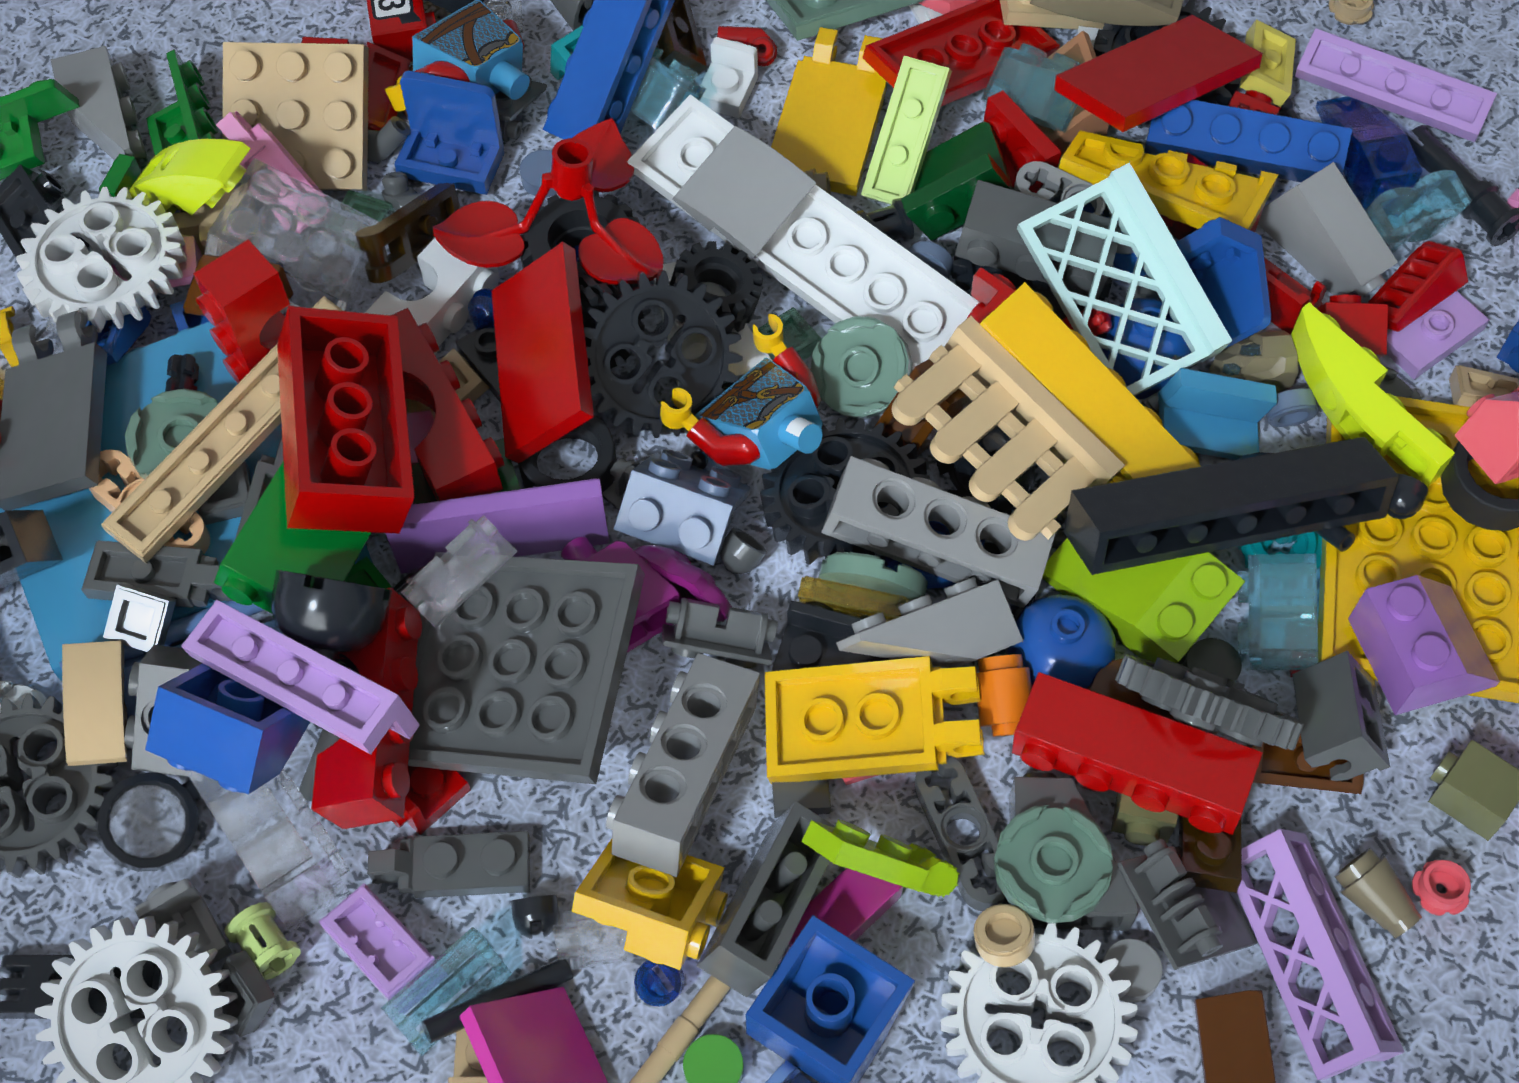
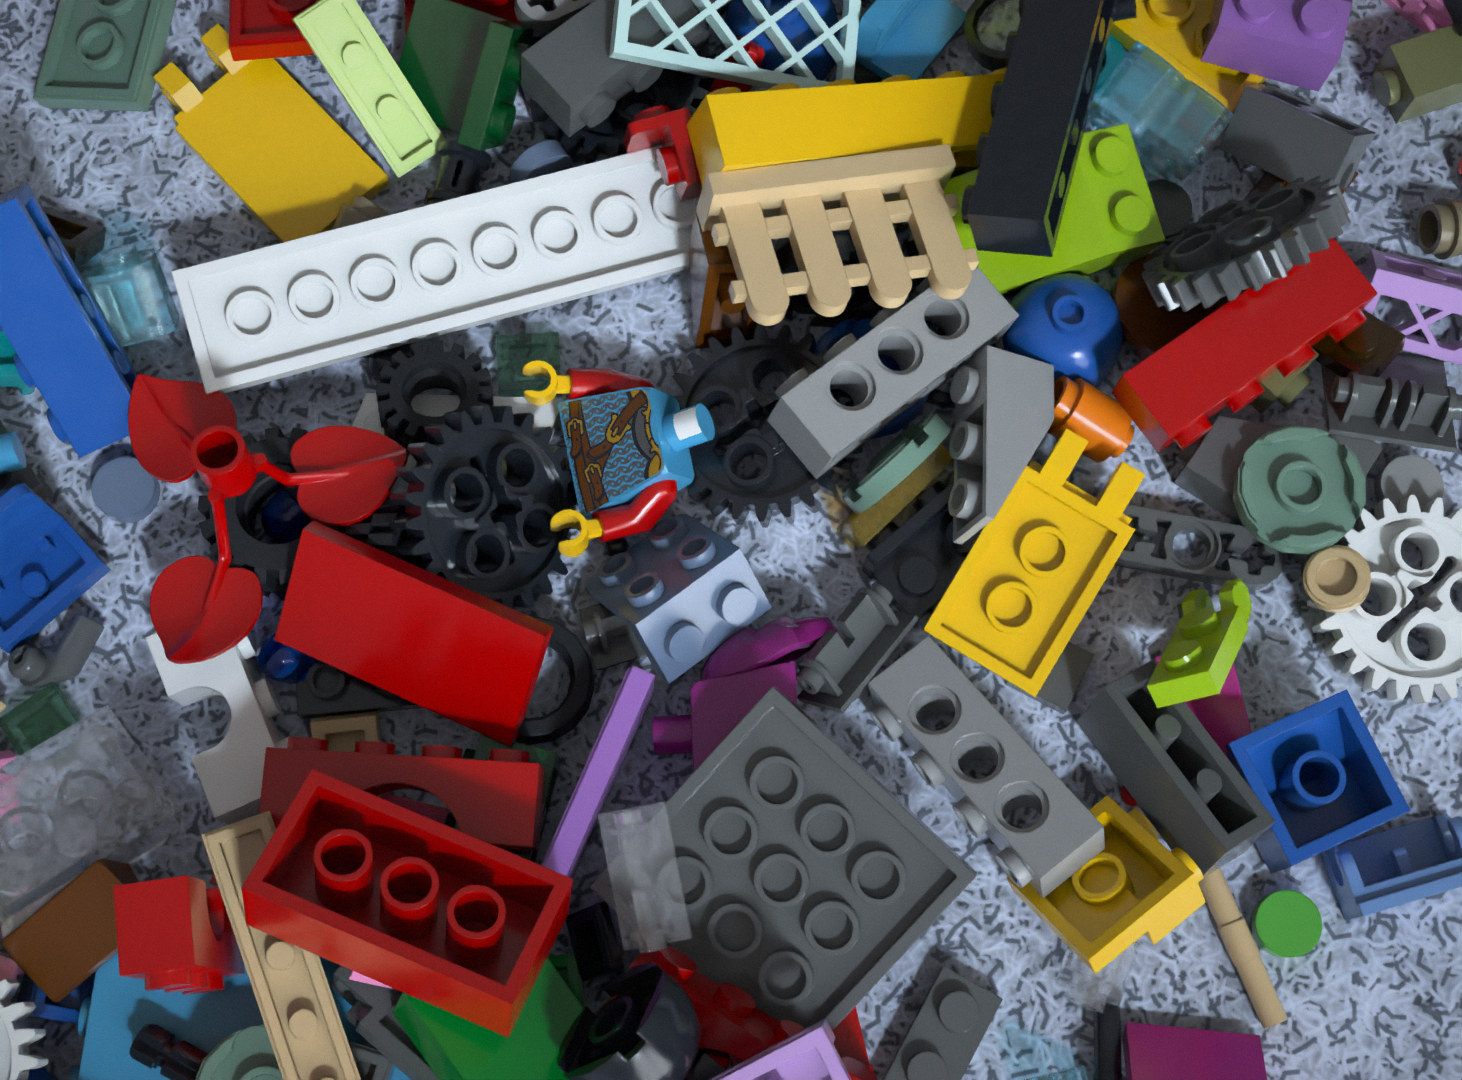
camera: 60 degrees left, 15 degrees up
(405, 232) = (130, 686): dark brown plate -> none
(533, 910) = (1034, 1006): black hinge -> none
(651, 988) = (1190, 937): clear blue hinge -> none
(730, 76) = (141, 212): white bracket -> none
(741, 552) = (767, 564): dark grey hinge -> none
(744, 191) = (346, 295): light grey slope -> none
(754, 37) = (105, 159): red arm -> none
(860, 366) = (627, 314): sand green tile -> none

